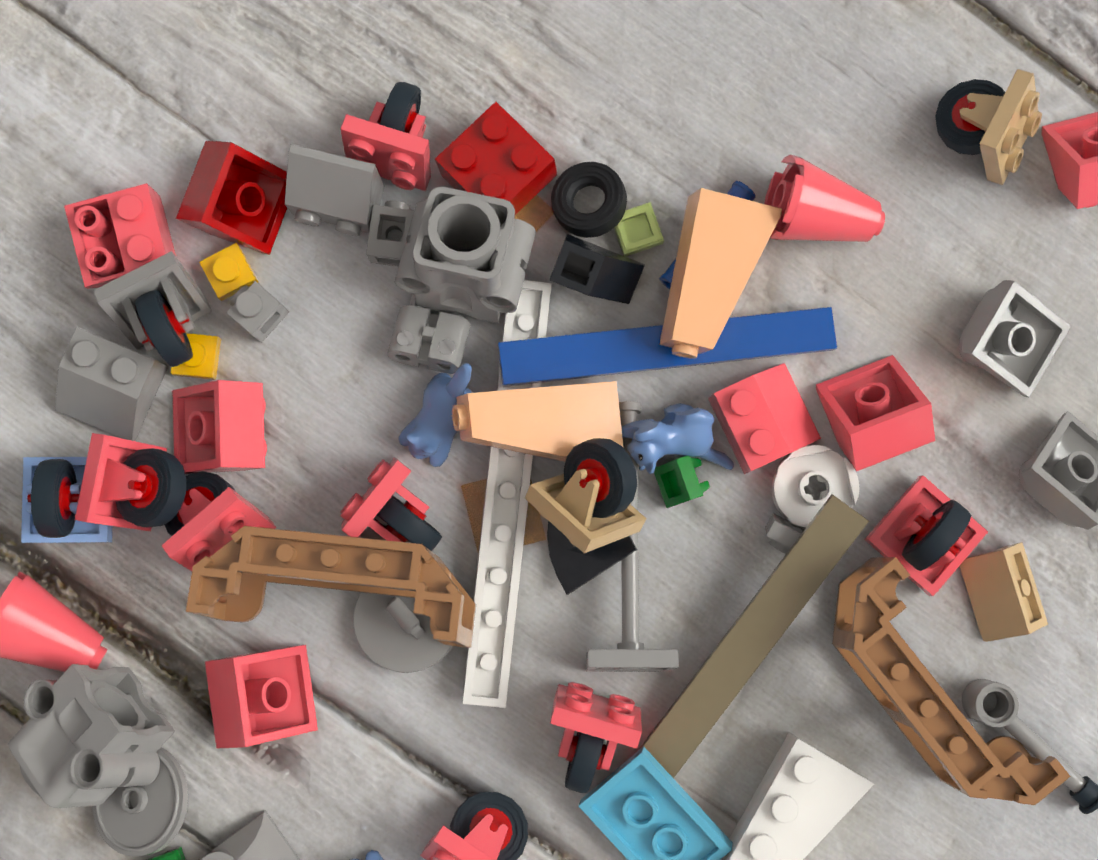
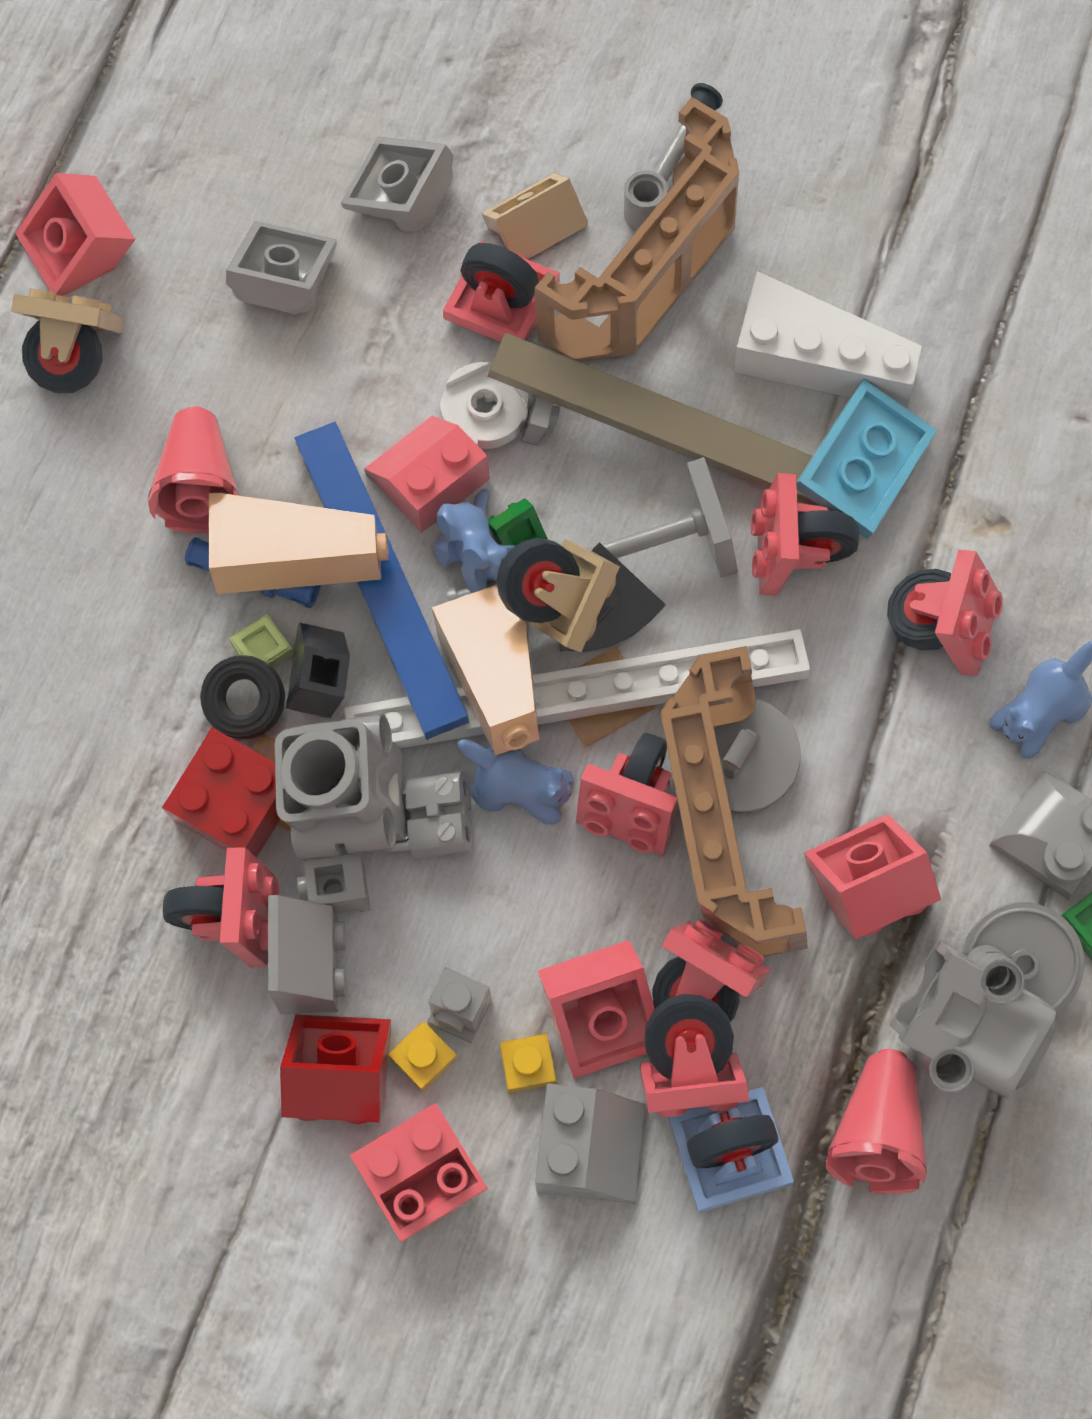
camera: 100 degrees left, 15 degrees down
(156, 307) = (491, 1098): light grey plate -> none
(876, 412) = (391, 368): coral slope -> none

